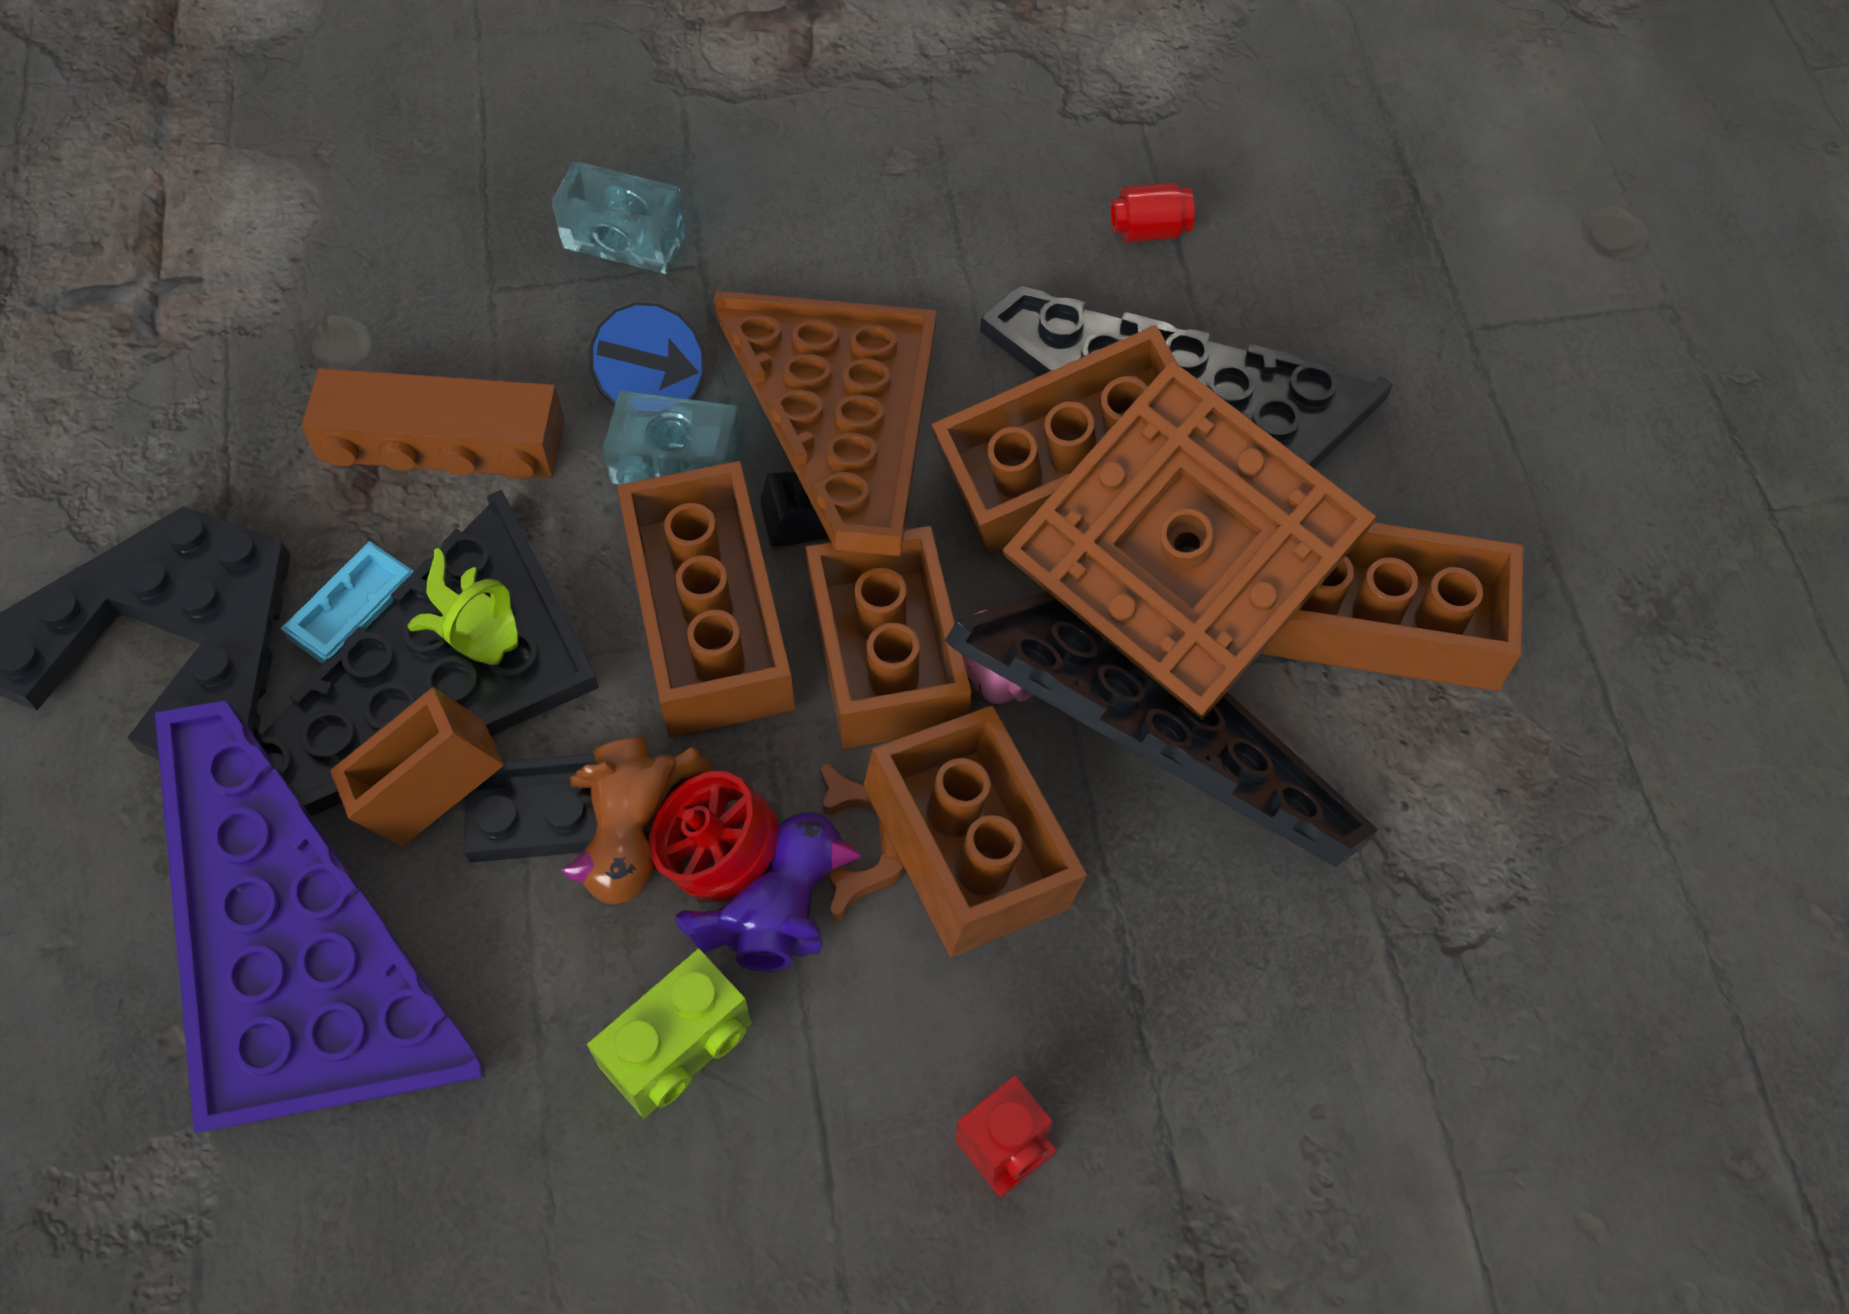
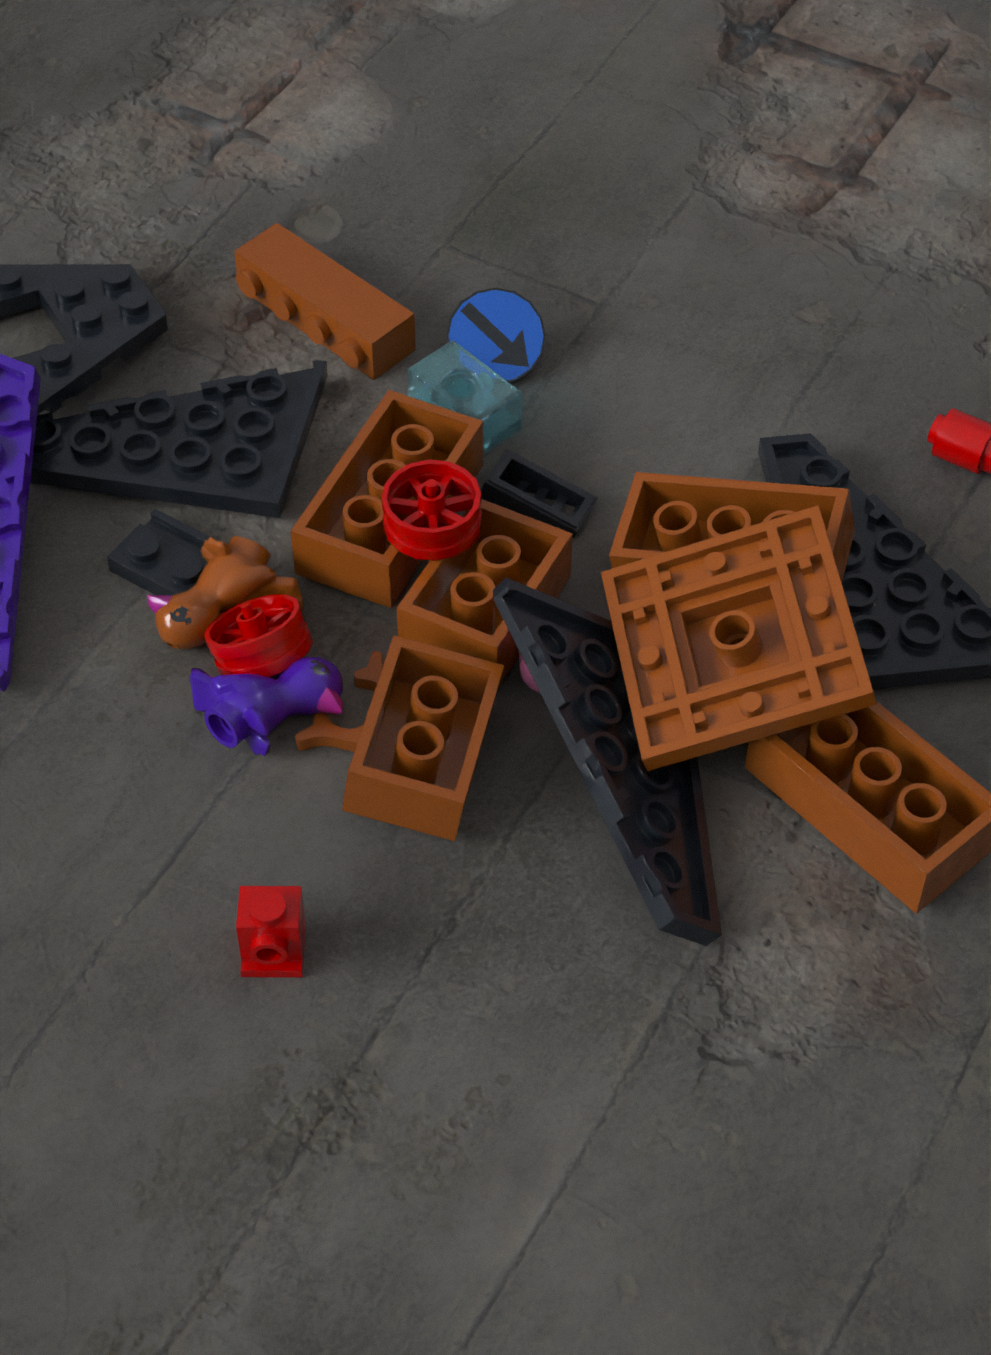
camera: 40 degrees right, 10 degrees down
(346, 601) = (174, 372): medium azure plate -> none
(416, 768) = (117, 484): dark orange brick -> none
(470, 621) = (230, 427): lime piece -> none
(619, 217) = (561, 236): clear light blue brick -> none
(671, 1034) = (125, 732): lime brick -> none
(791, 589) = (433, 526): none -> red wheel
(843, 400) = (596, 428): dark orange wing -> none

